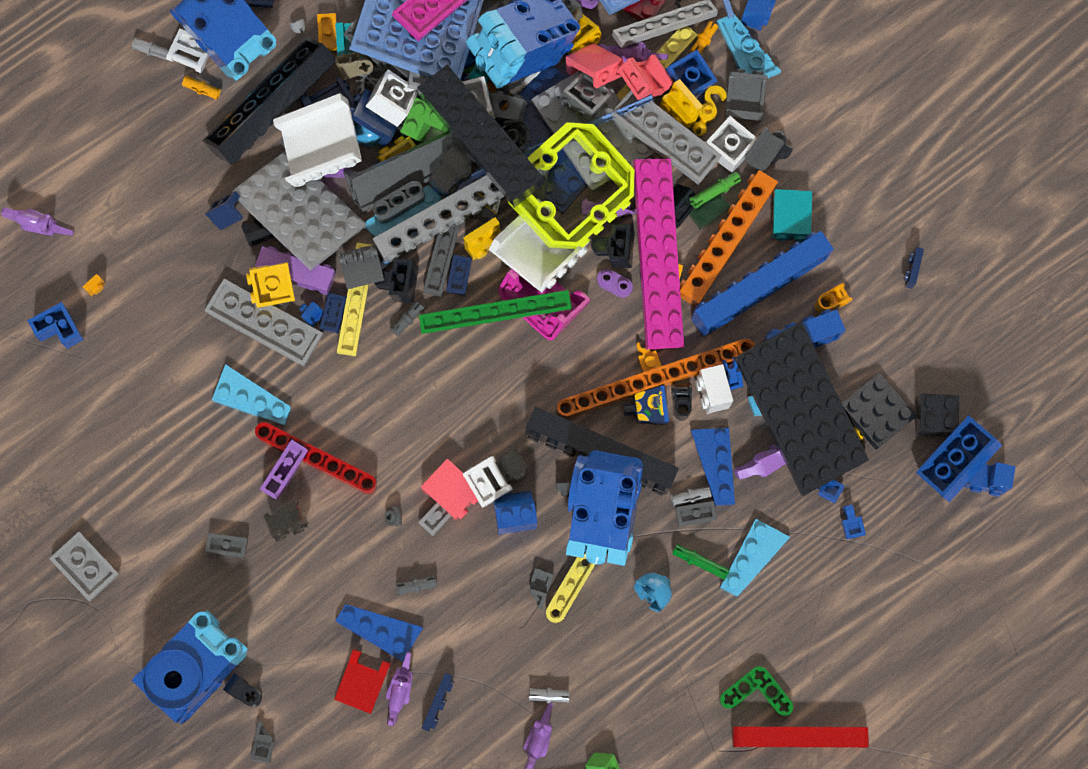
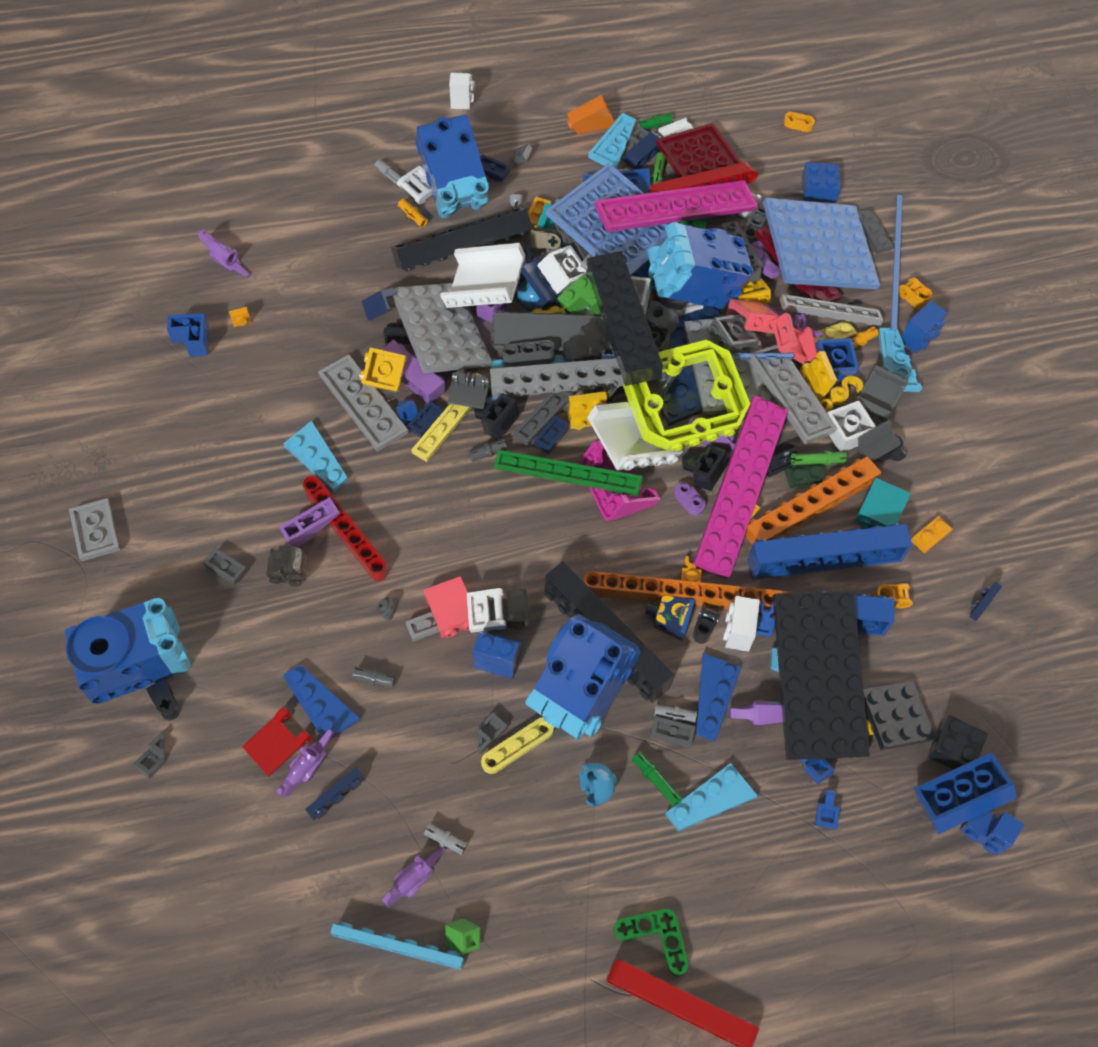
camera: 30 degrees right, 15 degrees down
(844, 221) = (931, 534): none -> light orange plate

